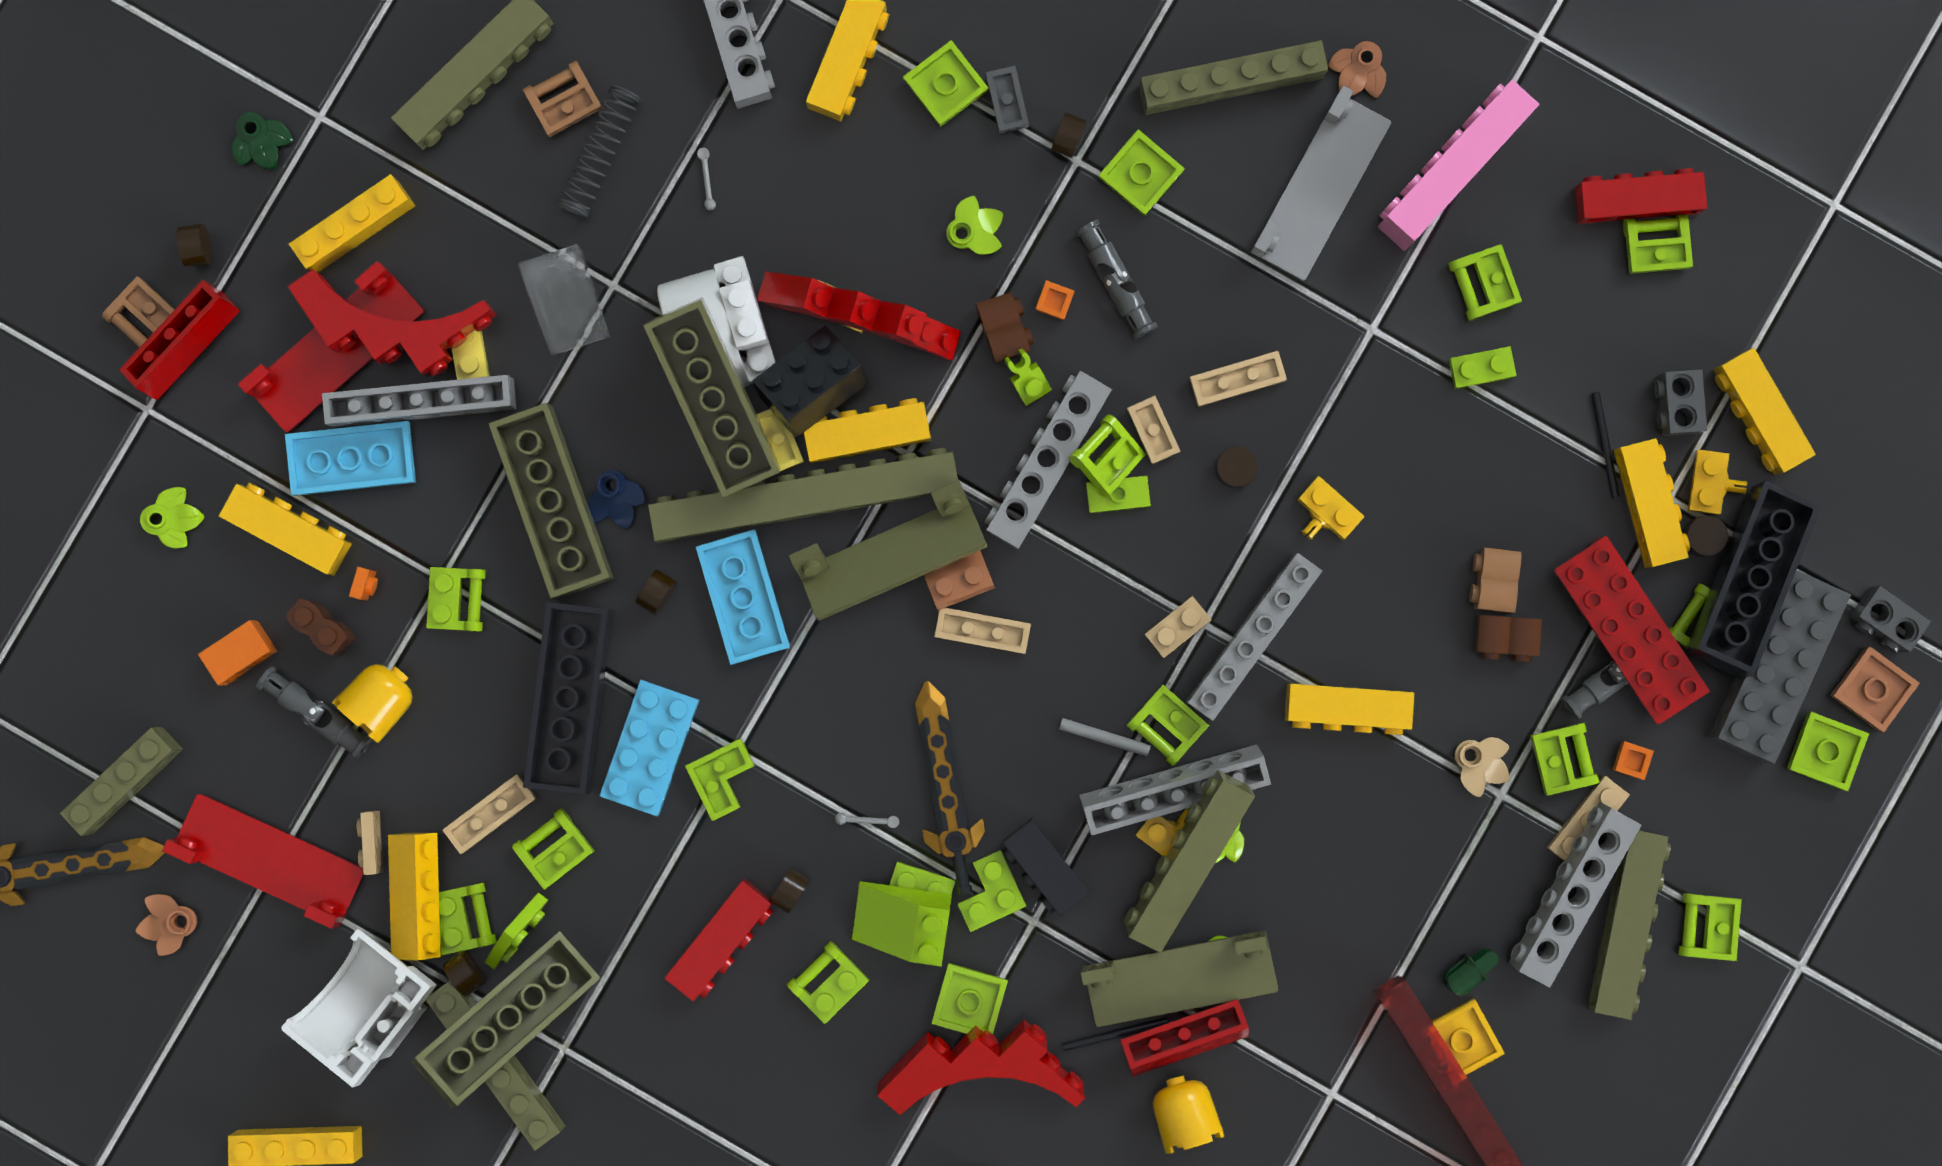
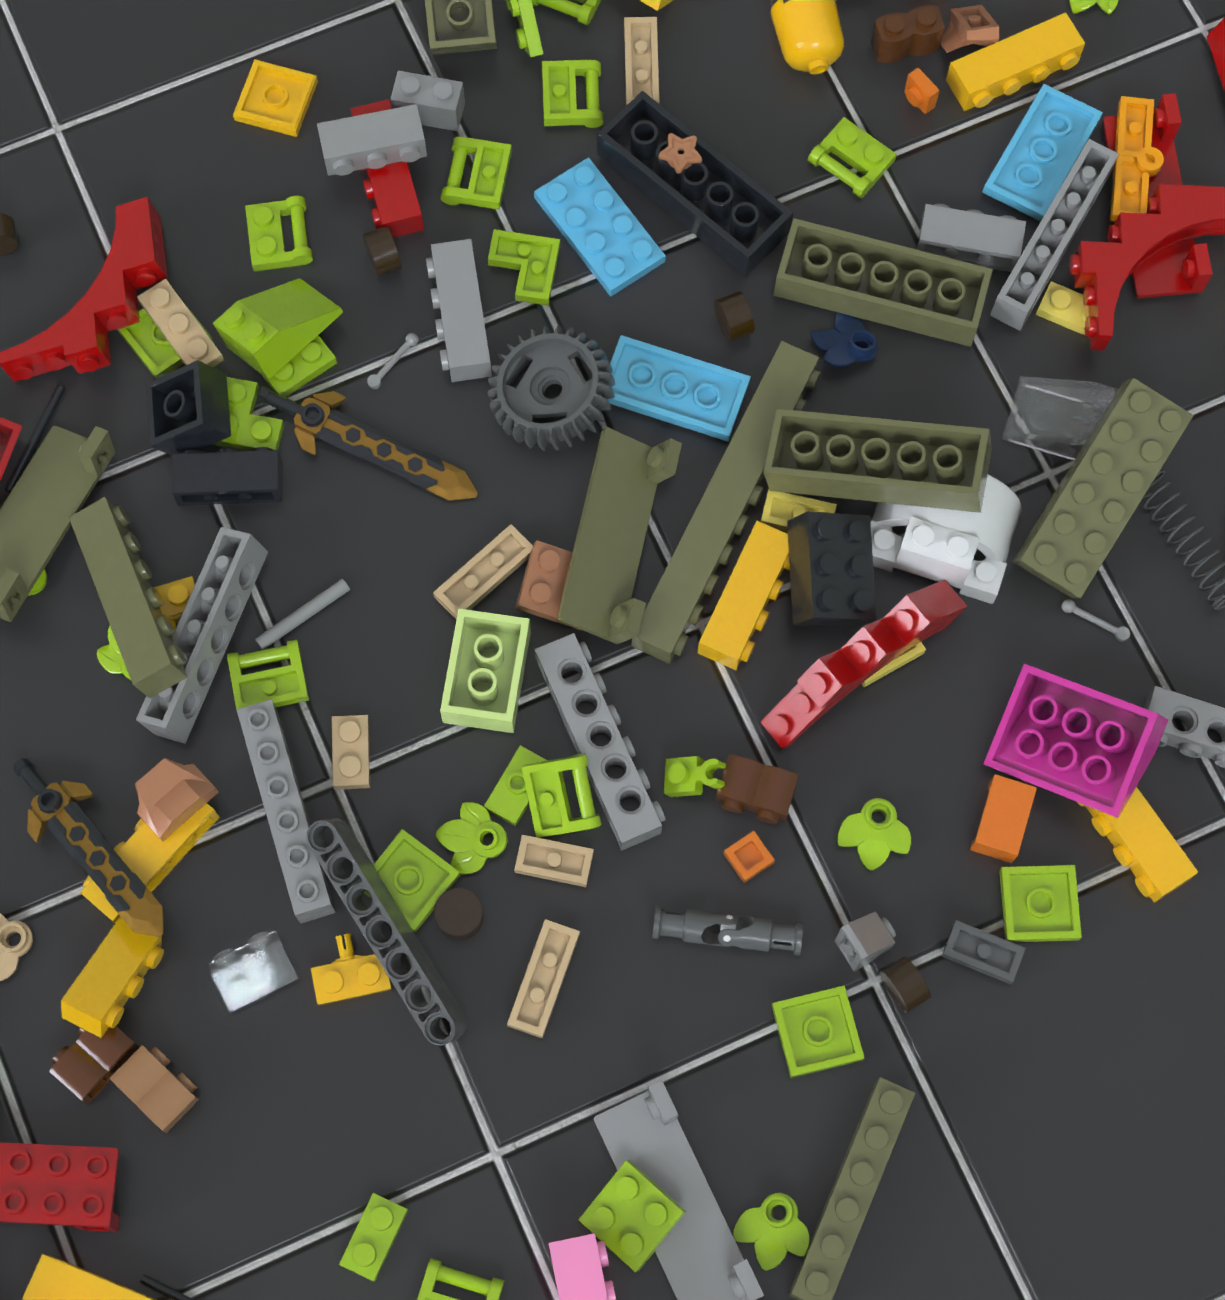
camera: 125 degrees right, 15 degrees down
(281, 583) = (968, 27): none -> nougat slope
(311, 381) = (1136, 157): none -> light orange hinge
(463, 463) = (972, 236): none -> light grey brick
(566, 713) = (677, 160): none -> nougat plate
(612, 229) = (1102, 488): none -> olive brick
(640, 951) = (437, 99): none -> light grey brick
(668, 861) = (487, 174): none -> lime plate
(713, 958) = (372, 140): none -> light grey brick
(717, 1073) = (275, 98): none -> yellow tile
(795, 795) = (460, 309): none -> light grey brick
(817, 130) = (1075, 740): none -> dark pink slope
(833, 691) = (550, 365): none -> dark grey gear
(903, 144) = (1004, 818): none -> orange panel
(960, 990) = (179, 325): none -> tan plate
(1019, 931) = (188, 409): none -> black brick
(1057, 180) = (865, 939): none -> light grey slope
(1057, 572) = (485, 670): none -> yellowish green brick
(1179, 502) = (466, 838): none -> lime plate
(1238, 518) = (414, 877): none -> lime plate
(1274, 512) = (402, 938): none -> dark grey beam
(1294, 111) = (772, 1236): none -> lime plate
(1304, 716) = (172, 795): none -> nougat slope
(1349, 209) = (632, 1215): none -> lime plate
(1373, 578) = (252, 970): none -> clear bracket
(1378, 750) = (87, 845): none -> sword
(1449, 662) = (110, 978): none -> yellow brick

